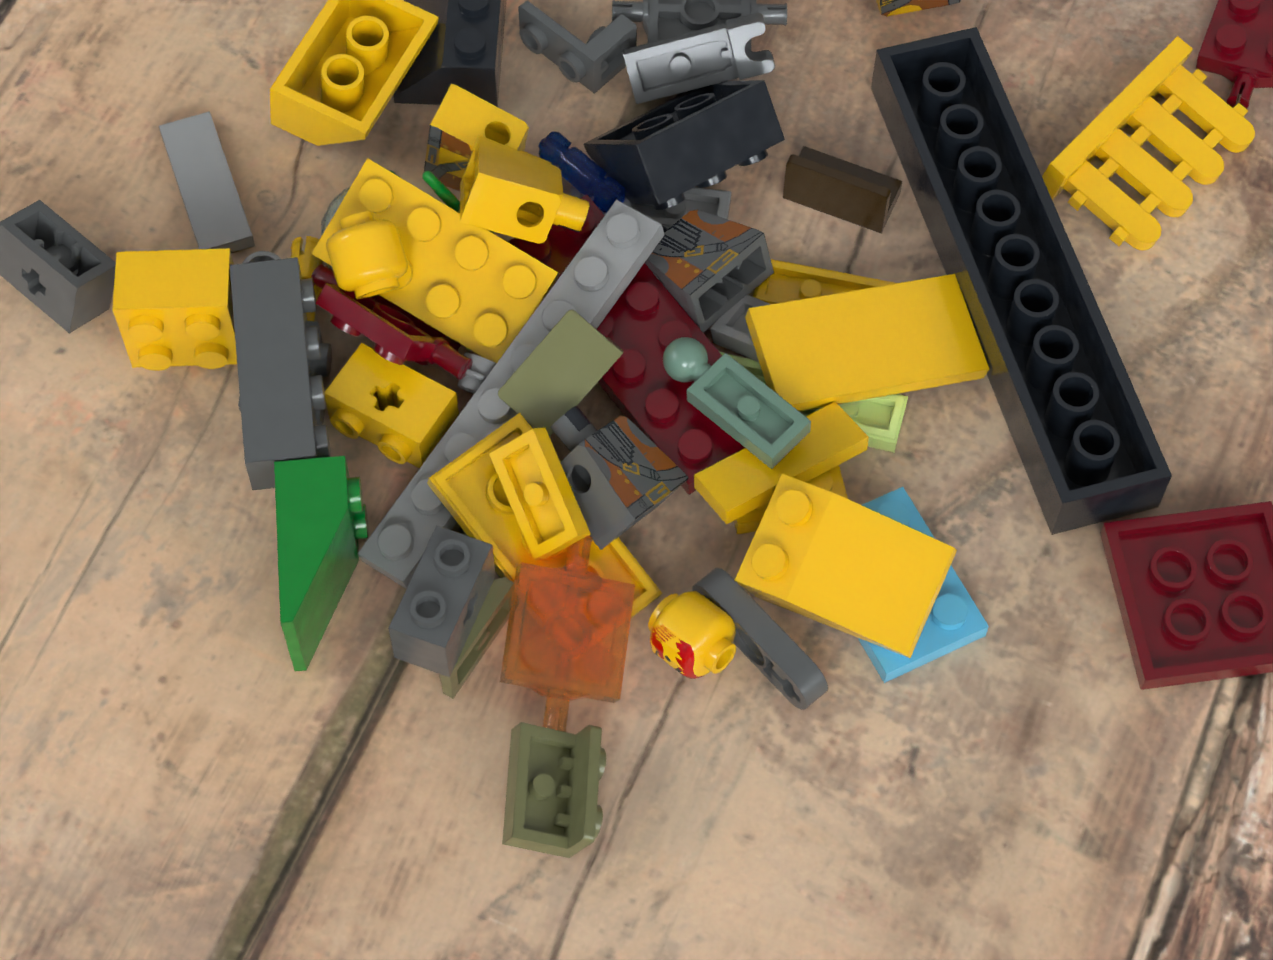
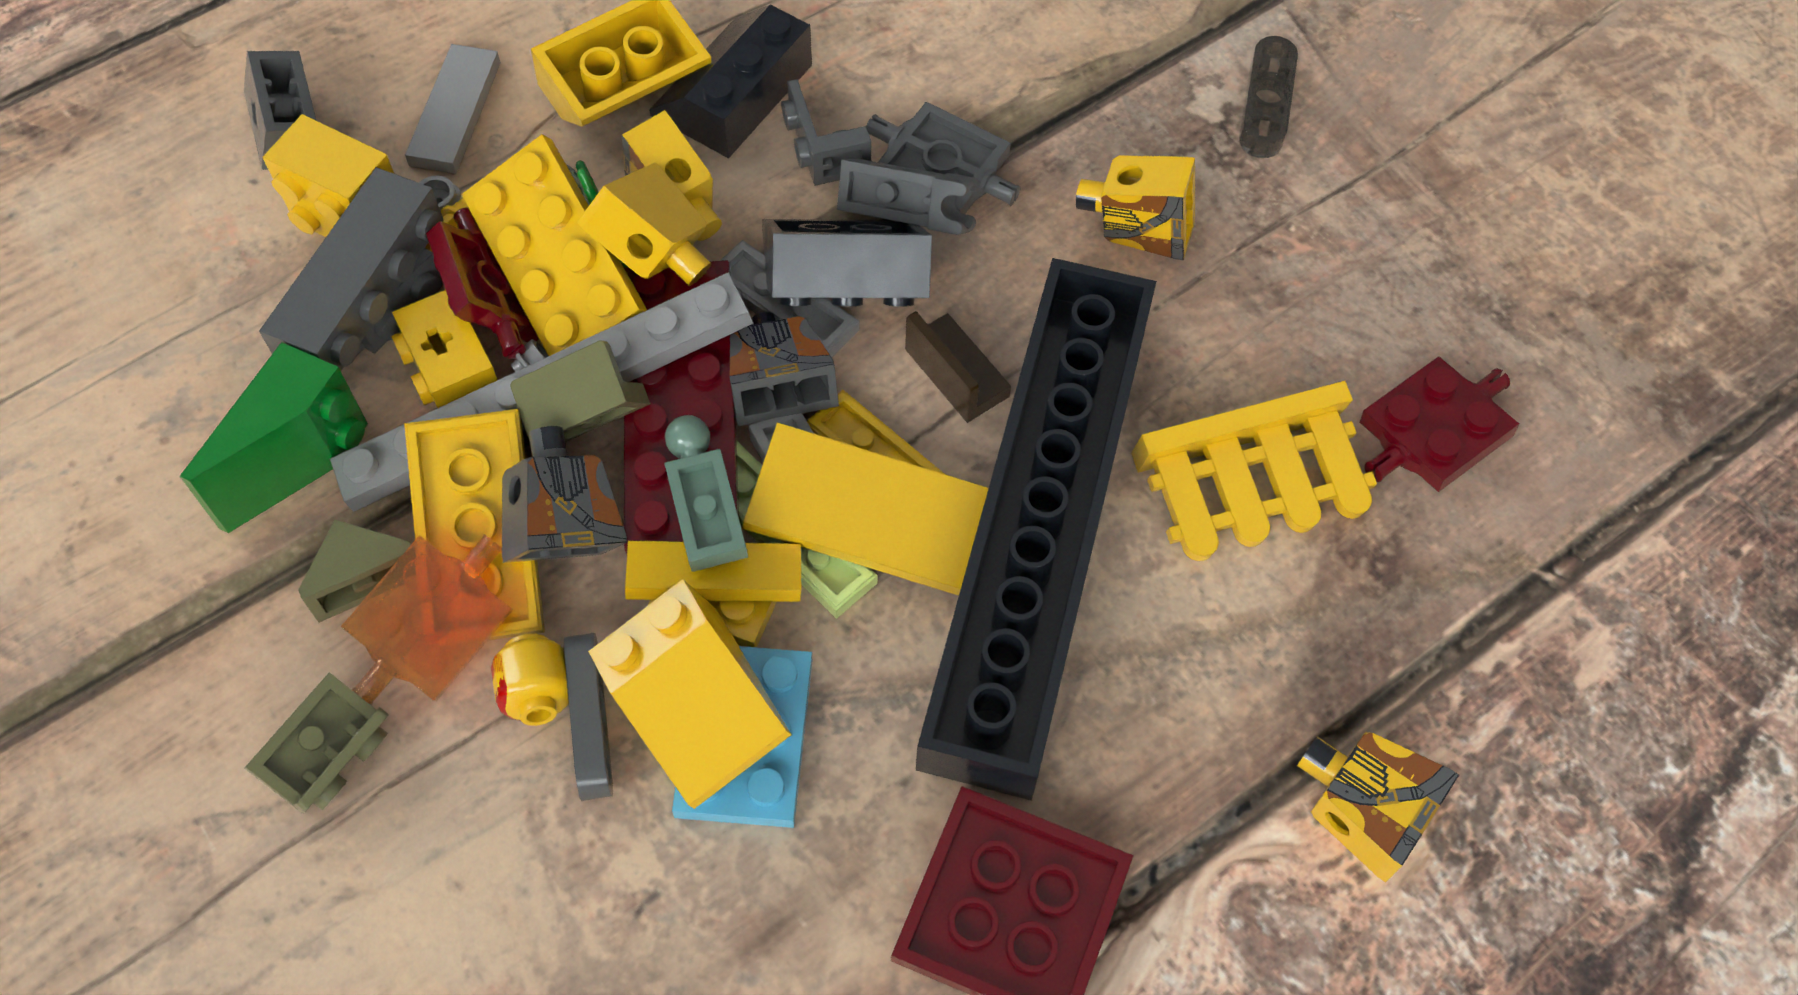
camera: 30 degrees right, 0 degrees up
(367, 255) = (482, 212): yellow head -> none
(442, 601) = (327, 531): dark grey brick -> none
(539, 493) = (476, 485): yellow plate -> none
(581, 171) = (742, 241): clear blue axle -> none

